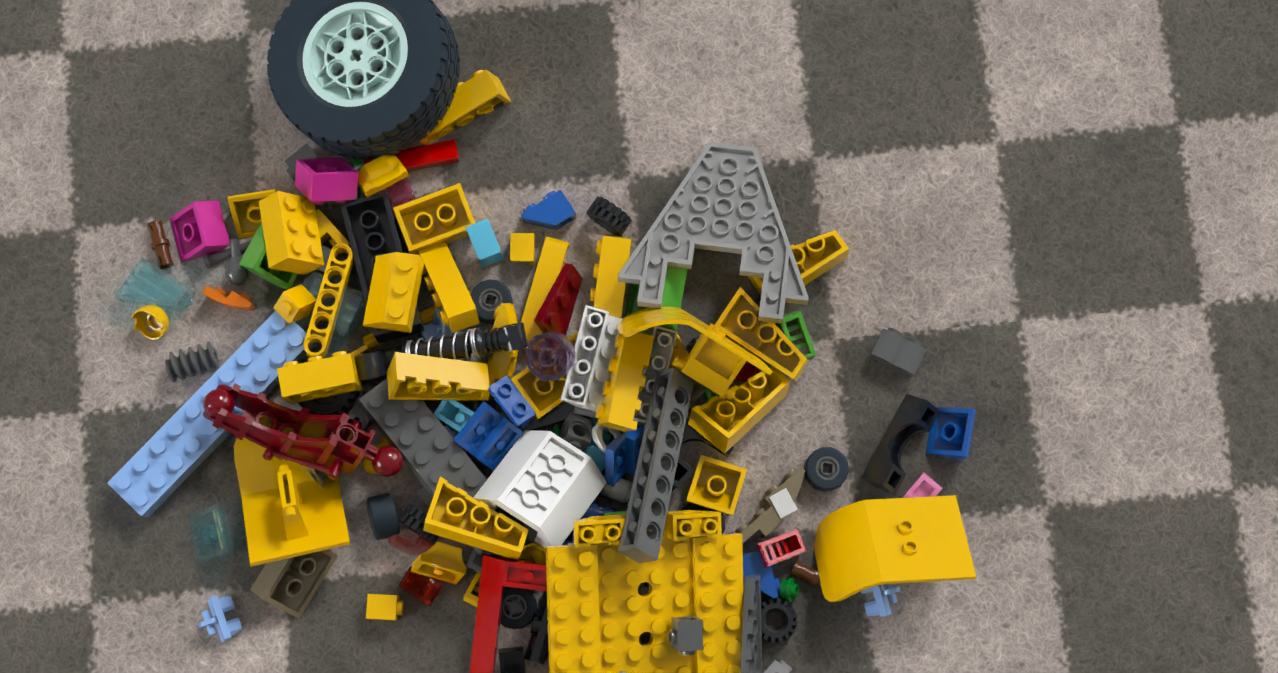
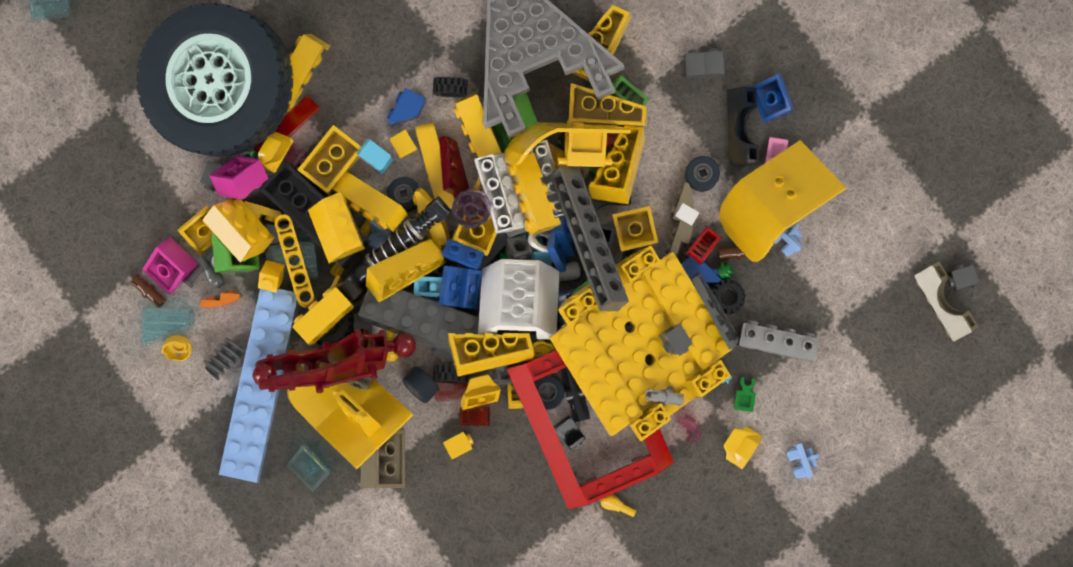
camera: 30 degrees left, 5 degrees up
(225, 628) = (350, 521): light blue hips -> none

